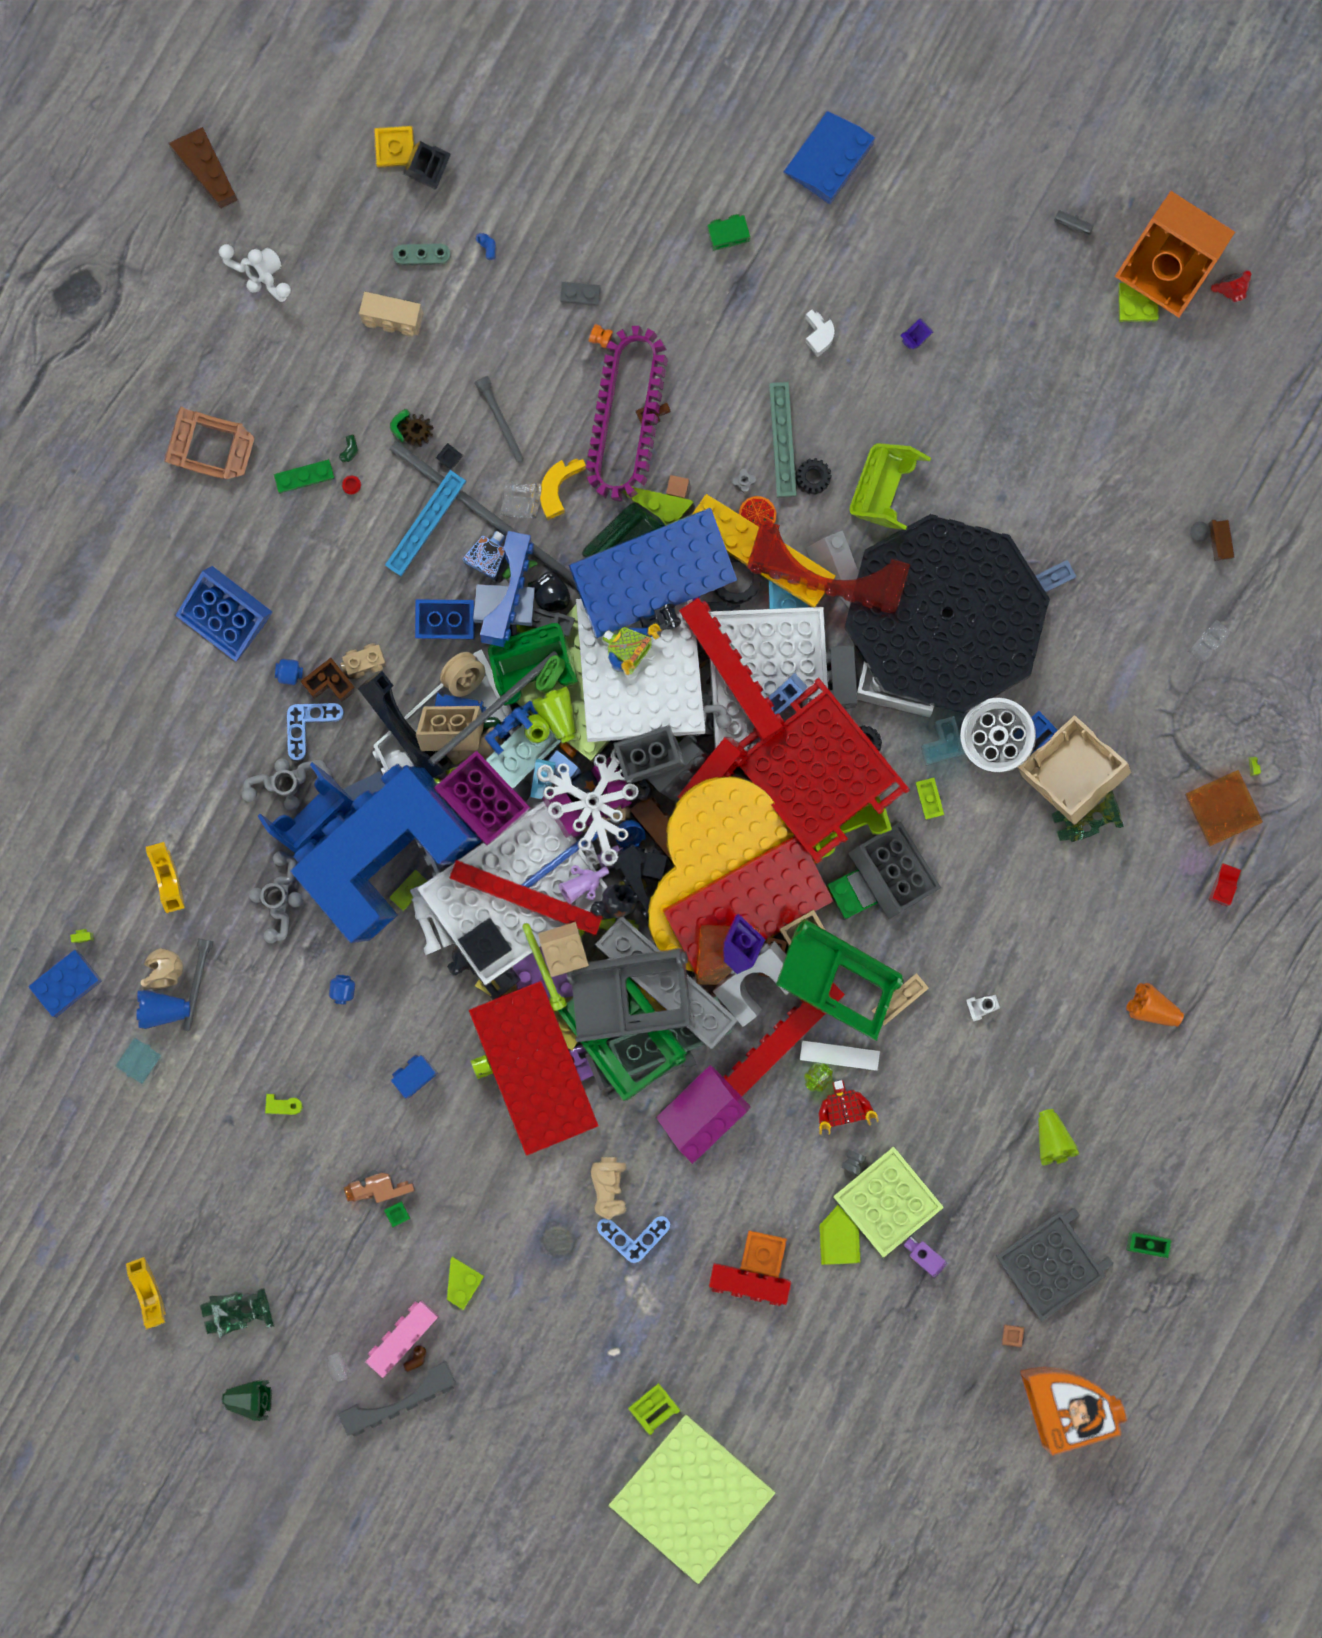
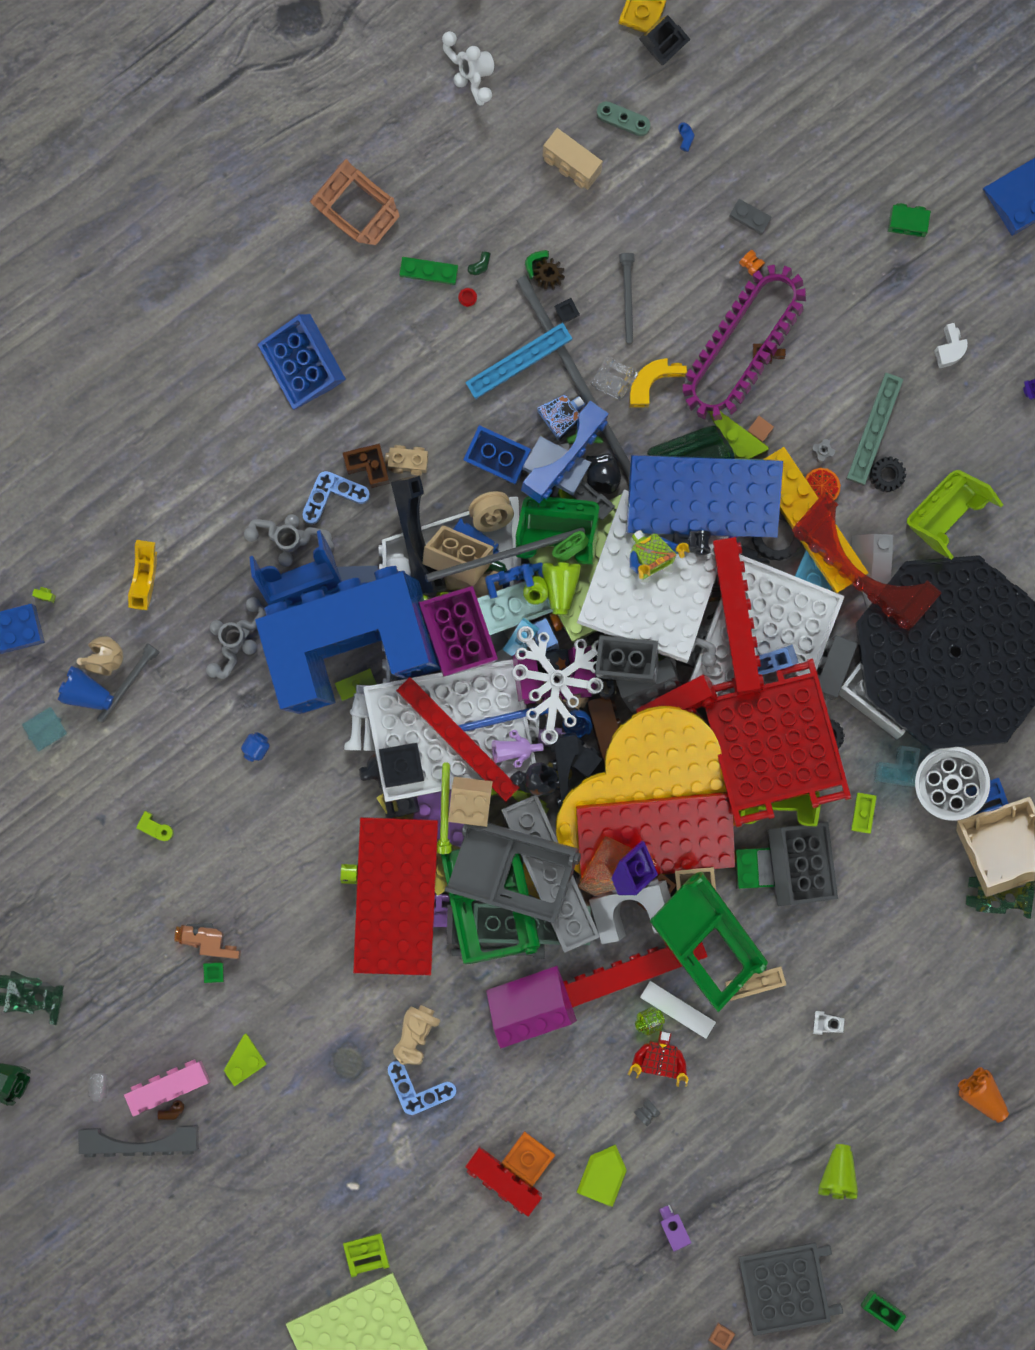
camera: 20 degrees right, 0 degrees up
(288, 671) = (335, 439): blue head -> none
(414, 1076) = (284, 855): blue brick -> none
(888, 1202) = (662, 1163): yellowish green plate -> none

